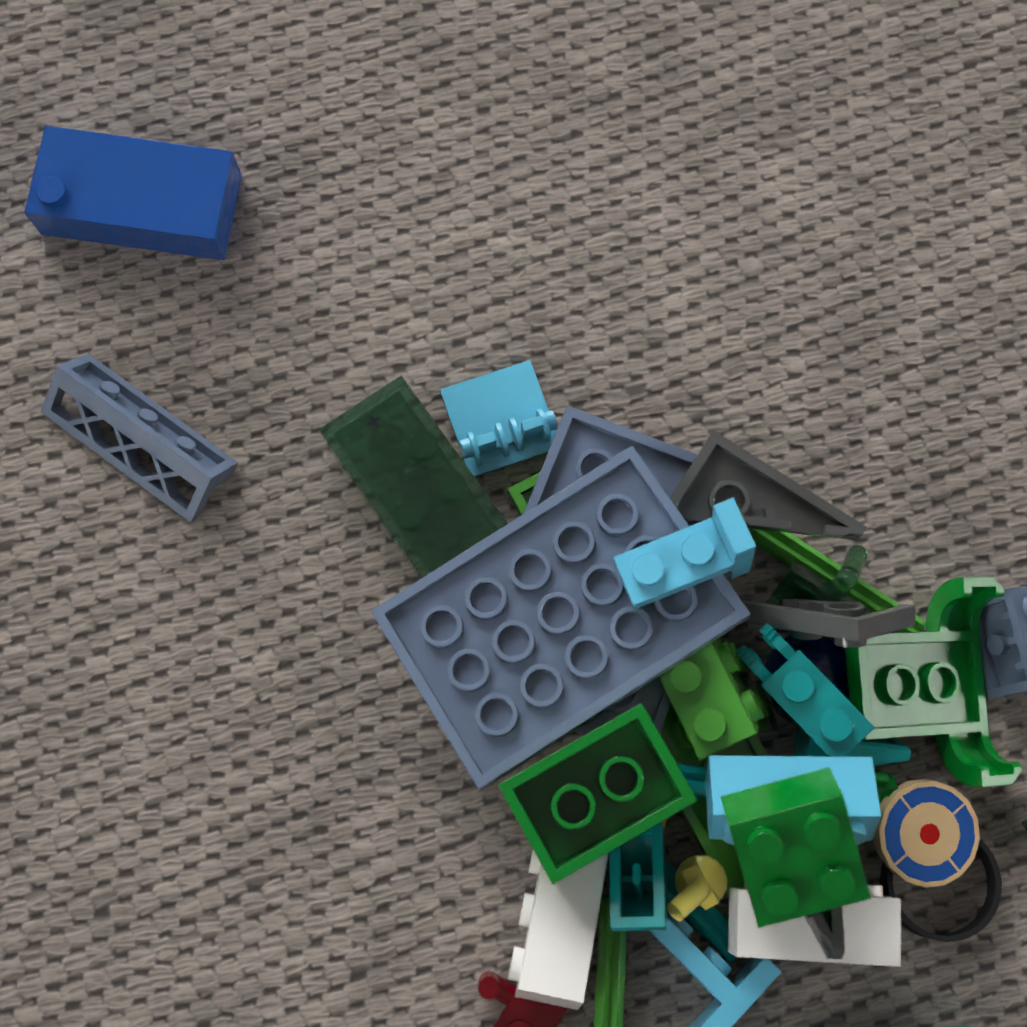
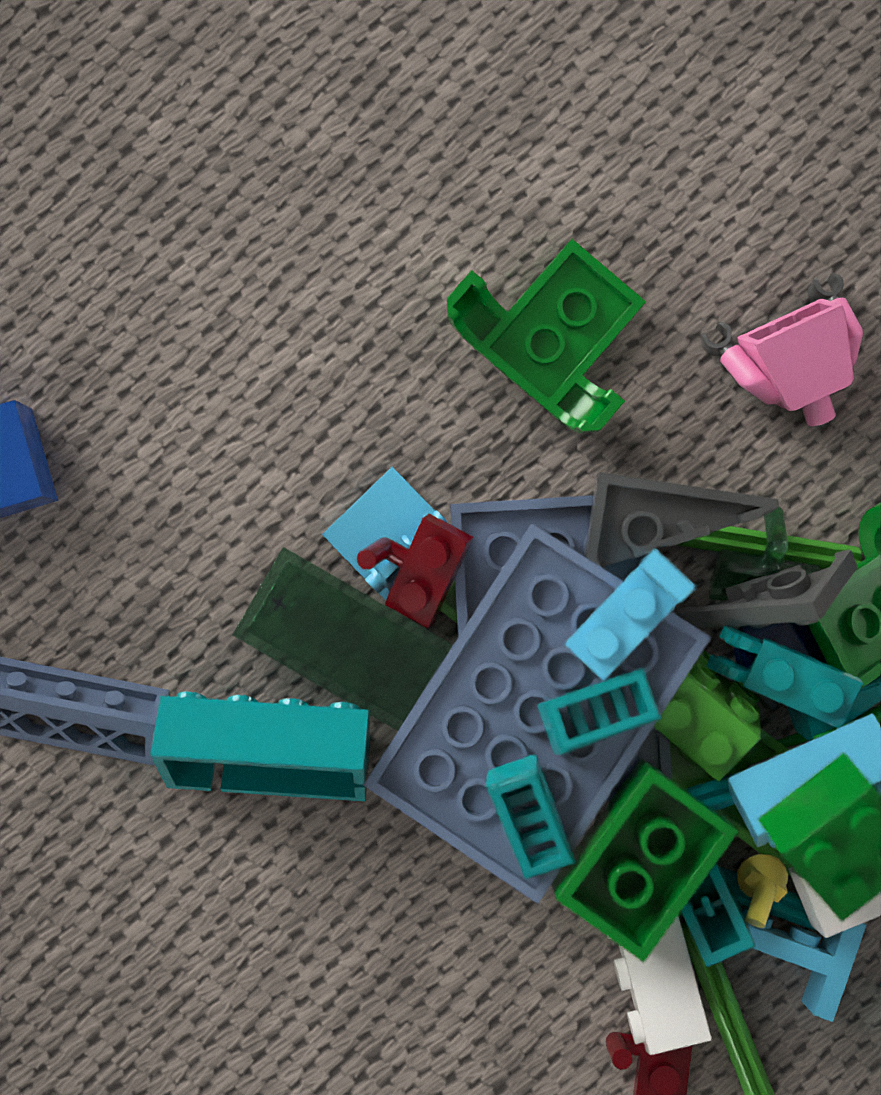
camera: 20 degrees left, 10 degrees up
(309, 547) = (263, 746): none -> teal piece
(490, 679) = (514, 775): none -> teal slope
(518, 448) = (425, 567): none -> dark red plate
(618, 613) = (642, 697): none -> teal slope
(724, 307) = (552, 333): none -> green piece
(938, 423) = (797, 356): none -> bright pink torso

